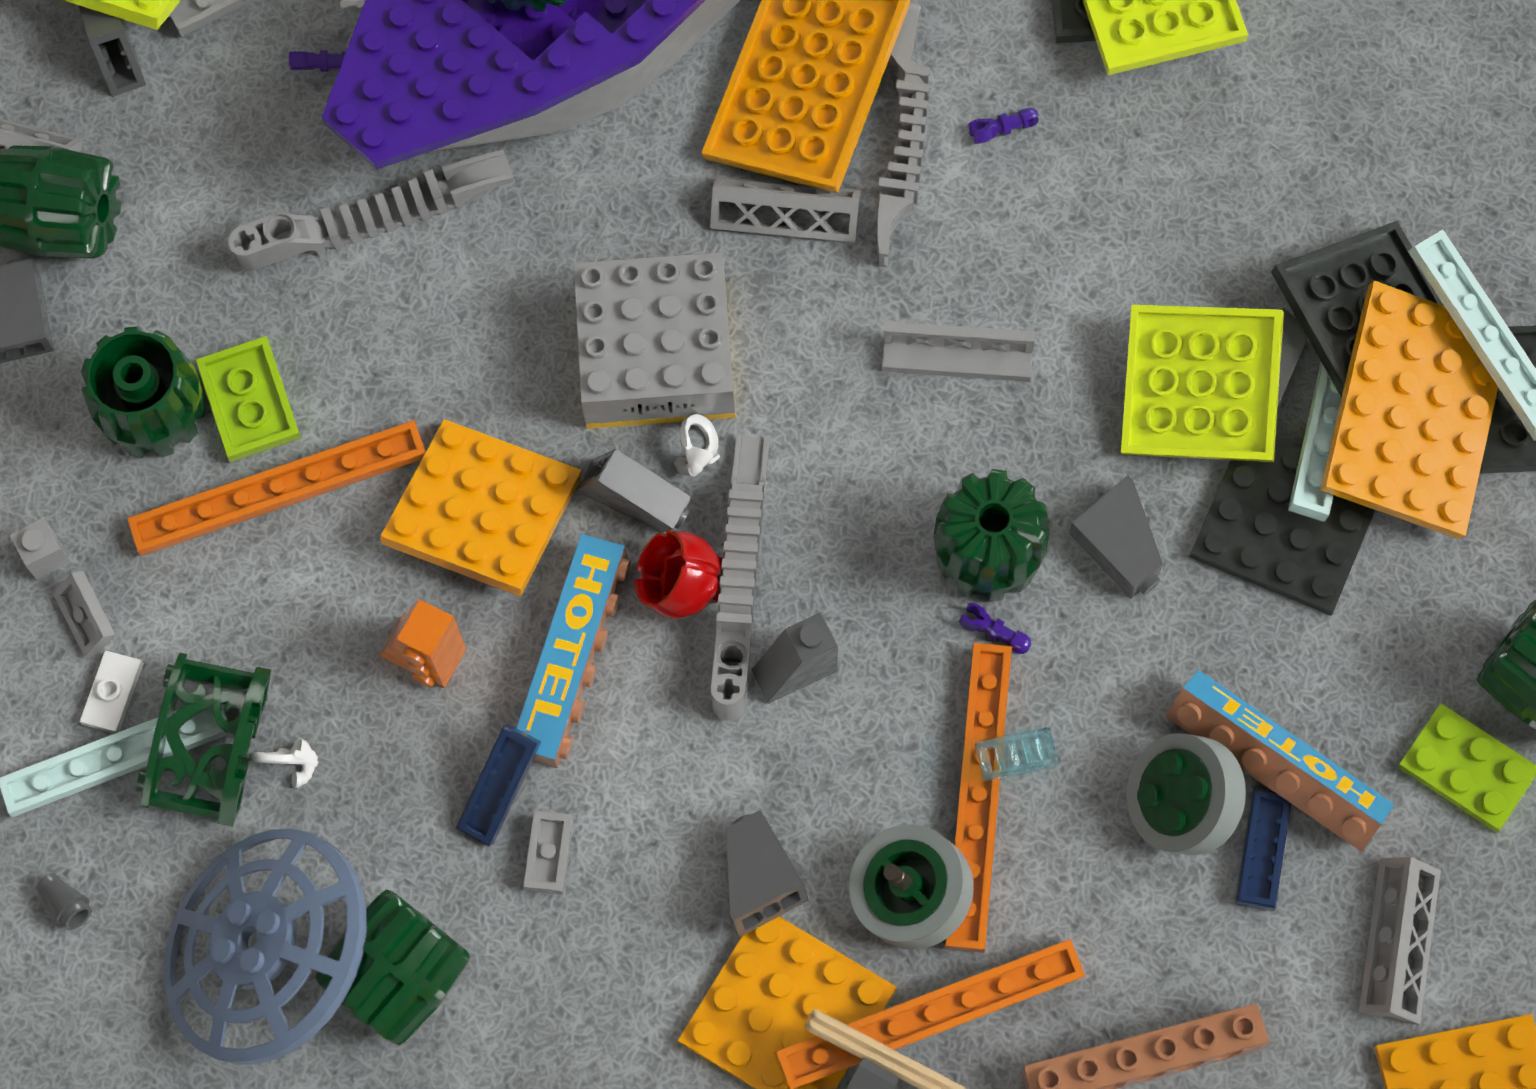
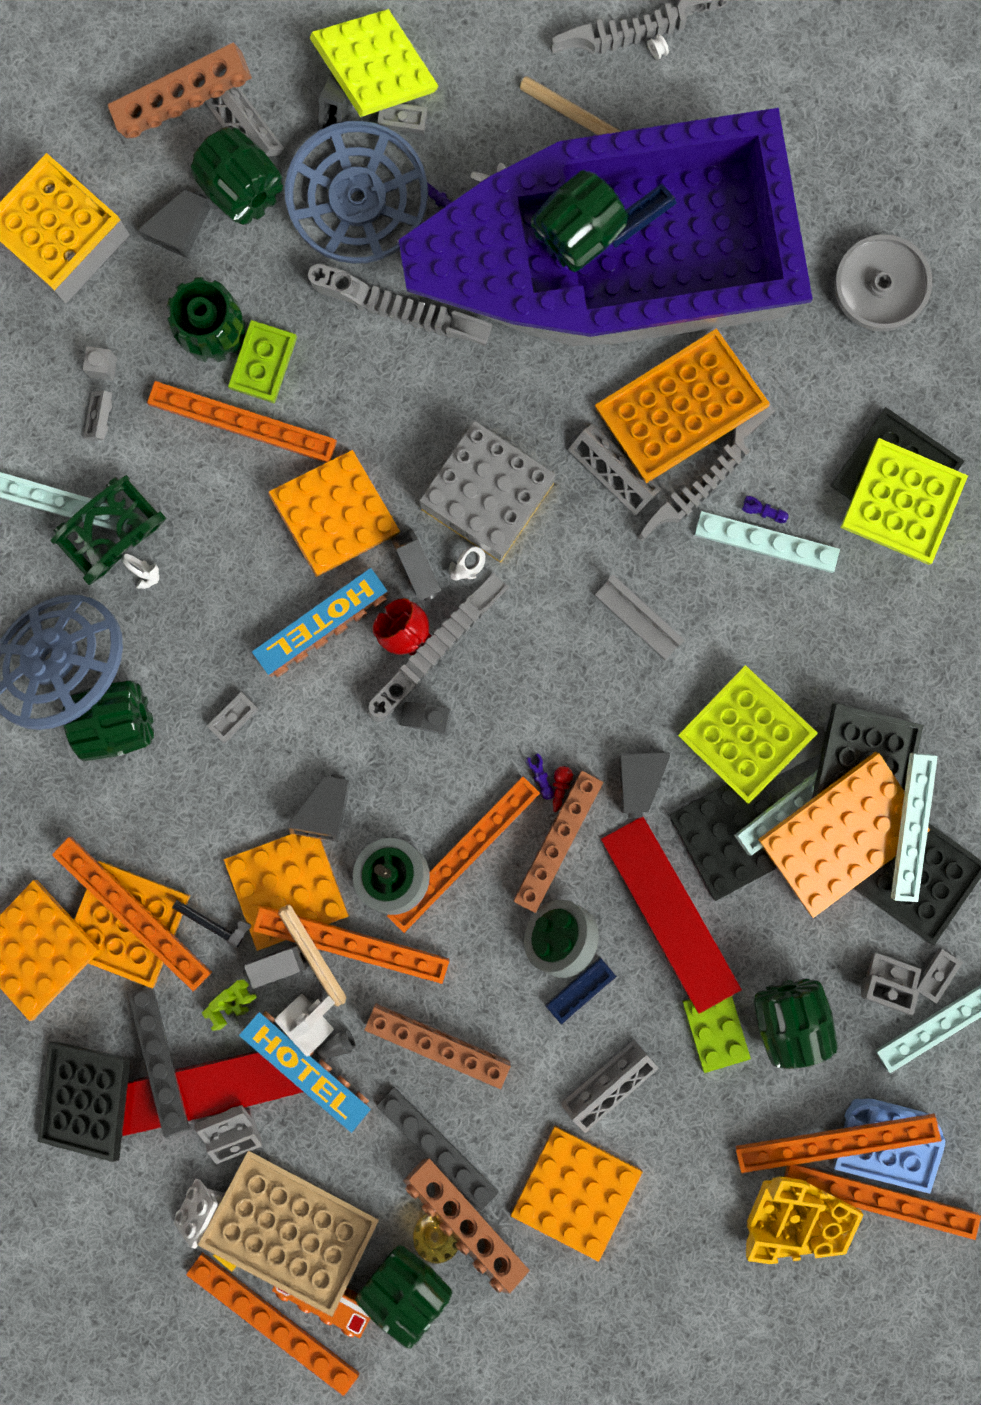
camera: 30 degrees right, 15 degrees up
(111, 692) = (83, 467): white plate -> none
(210, 106) = (352, 180): none -> sand blue dish
(426, 644) = (247, 566): orange wedge -> none
(498, 784) = (232, 665): dark blue plate -> none
(991, 535) = (585, 718): dark green wheel -> none
(1023, 607) = (563, 776): none -> red bar
(1035, 158) = (767, 542): none -> light aqua plate
(1045, 749) = (514, 858): clear light blue slope -> none
(1082, 688) = (558, 841): none -> nougat brick
(1281, 760) = (624, 956): brick -> none
(1295, 669) = (671, 915): none -> red slope

